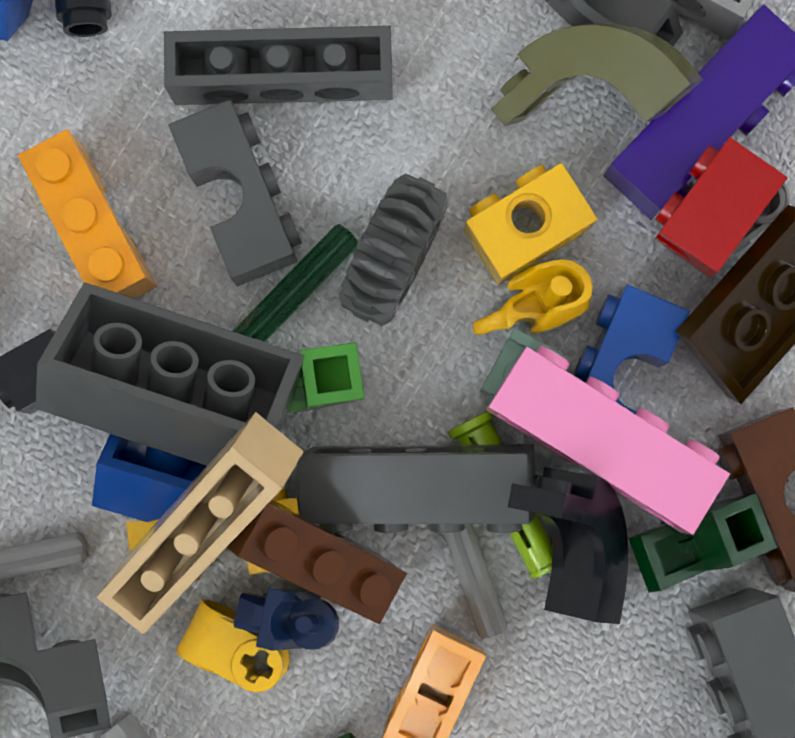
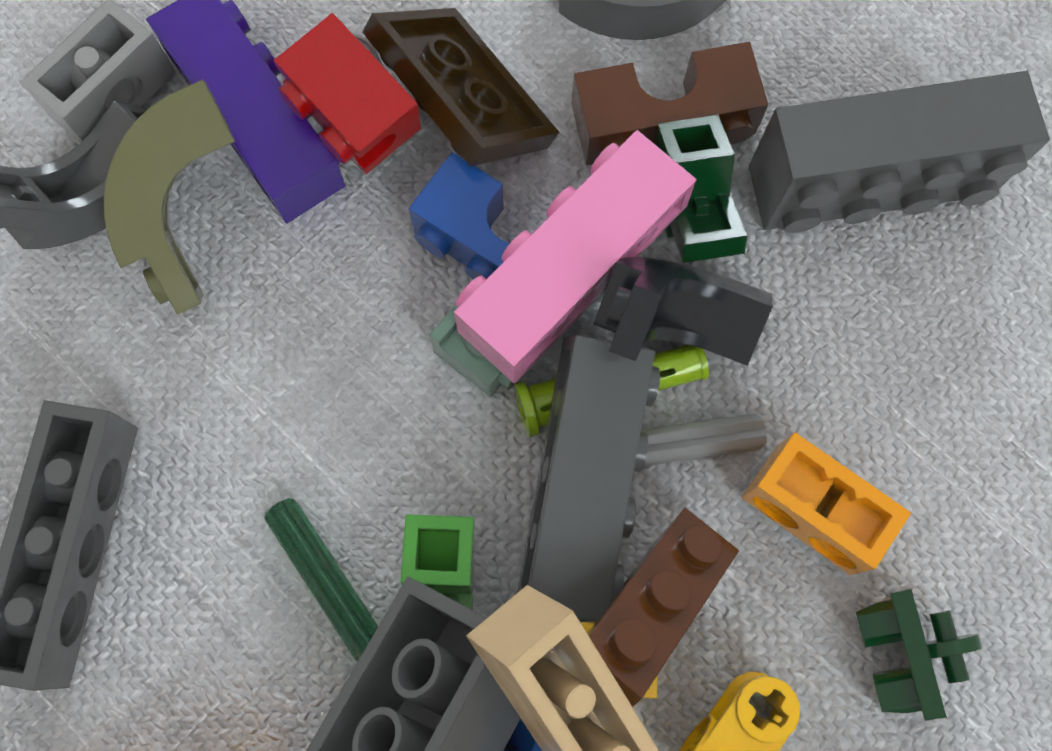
camera: 85 degrees left, 10 degrees down
(217, 147) = (135, 637): dark grey arch -> none
(288, 619) = (718, 660): dark blue hips -> none
(393, 249) = (308, 449): dark grey gear -> none
(549, 298) = (406, 299): yellow piece -> none
(552, 197) = (311, 268): yellow brick -> none

